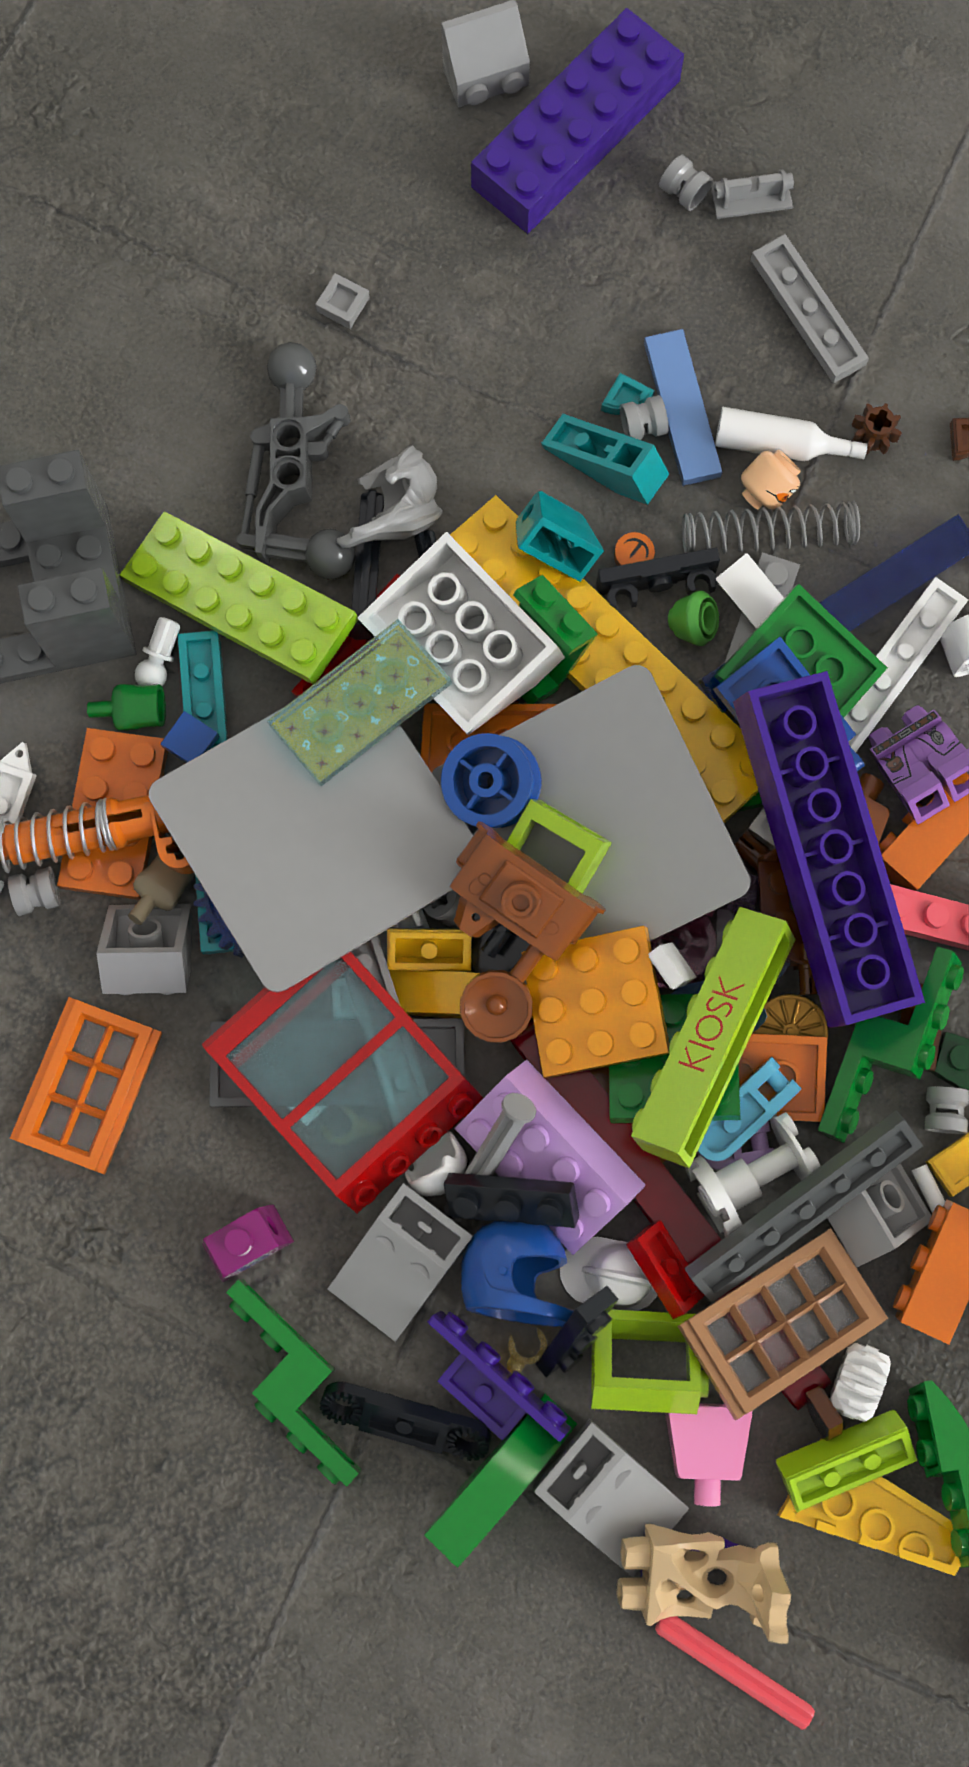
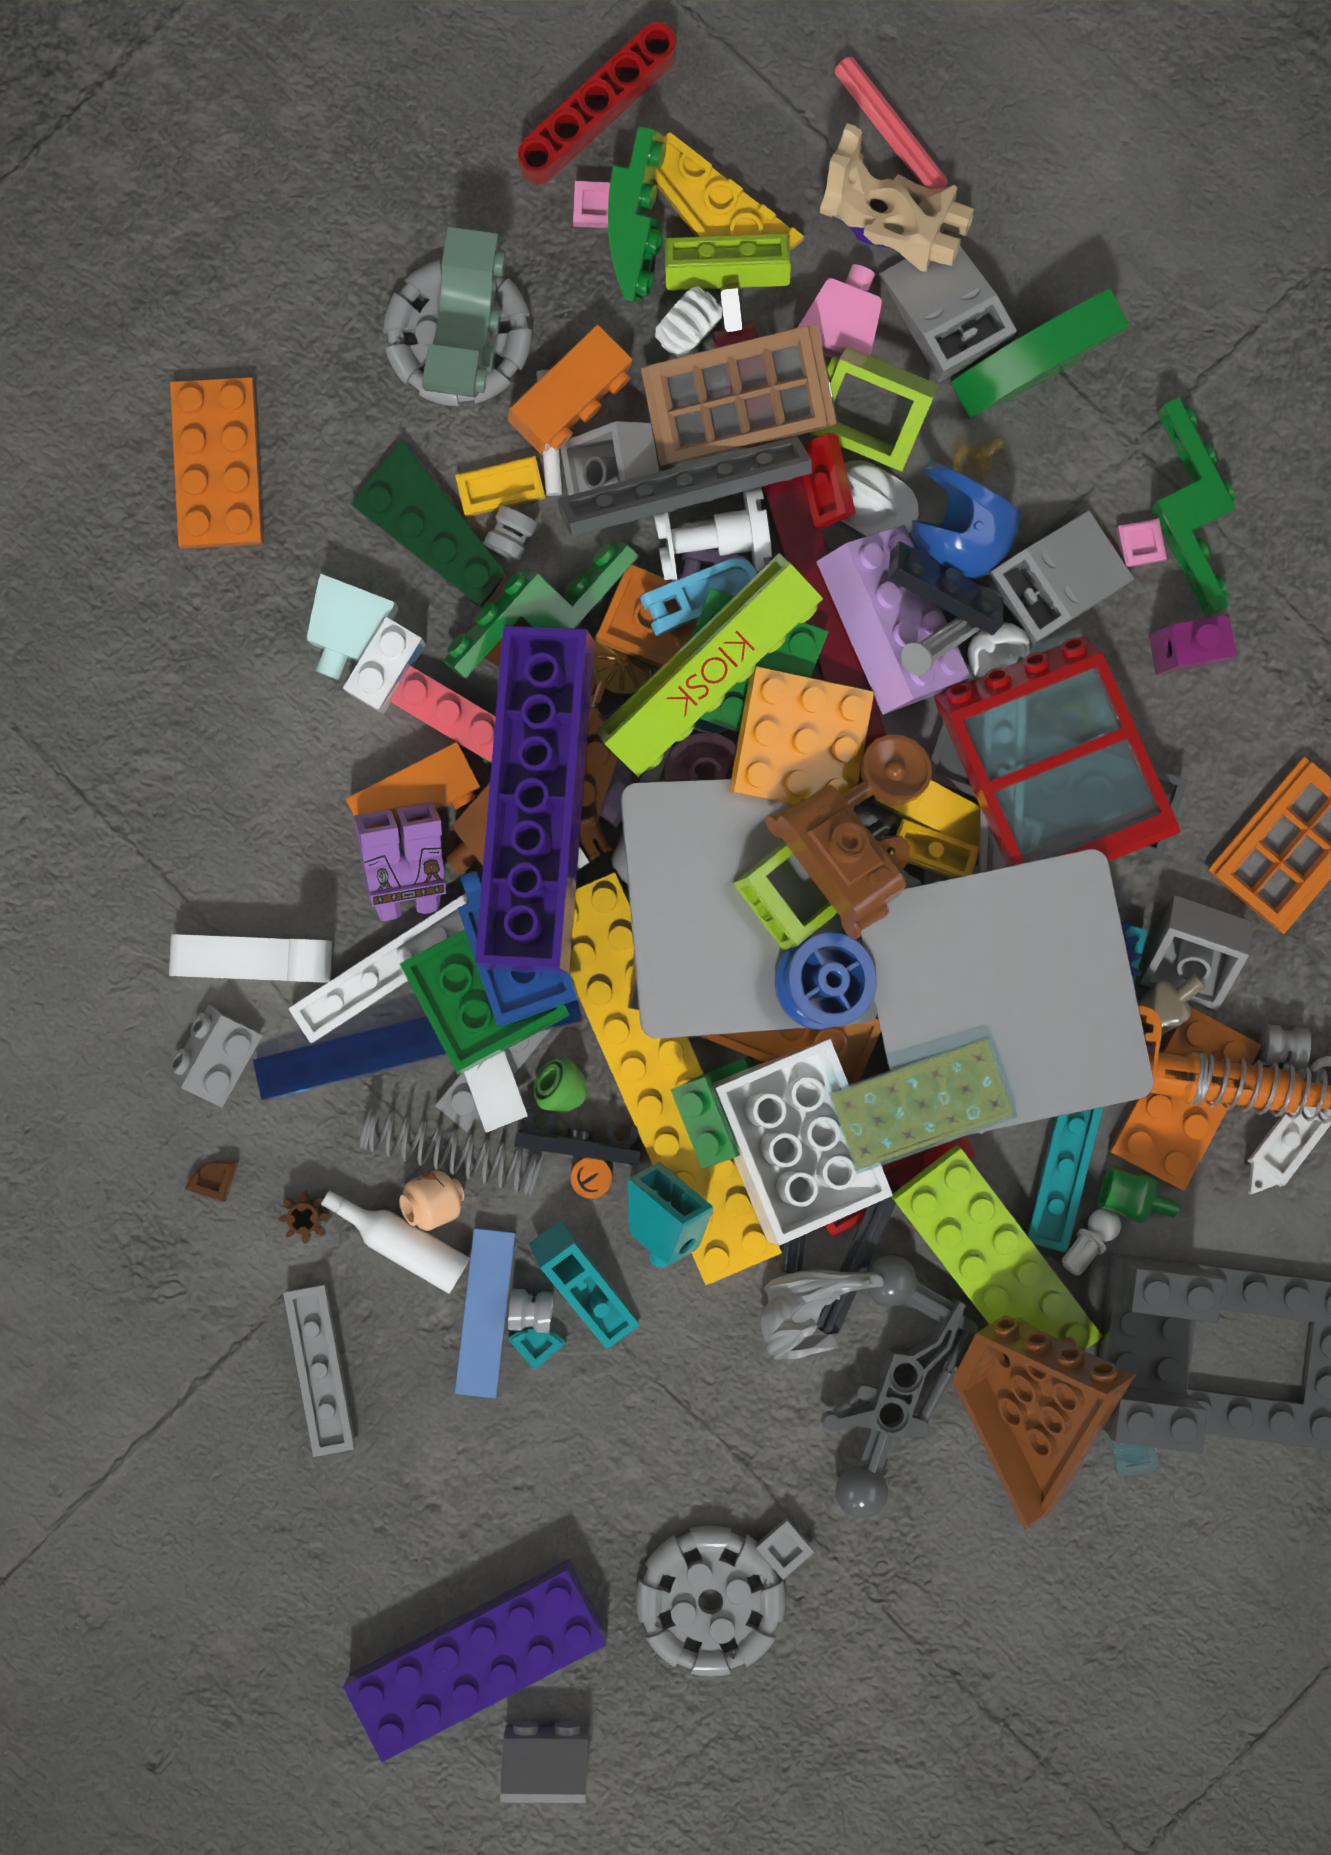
camera: 160 degrees left, 10 degrees up
(161, 479) = (1036, 1410): none -> dark orange piece
(189, 738) = (1091, 1138): blue tile -> none
(332, 1329) = (1141, 543): none -> bright pink tile
(386, 218) = (705, 1625): none -> light grey plate
(405, 1420) = (1104, 437): black plate -> none
(488, 1387) = (1020, 439): dark purple bracket -> none
(578, 1333) = (928, 449): black plate -> none
(671, 965) = (721, 745): white tile -> none
(686, 182) = (390, 1551): light grey wheel -> none
(752, 194) = (327, 1515): light grey hinge -> none

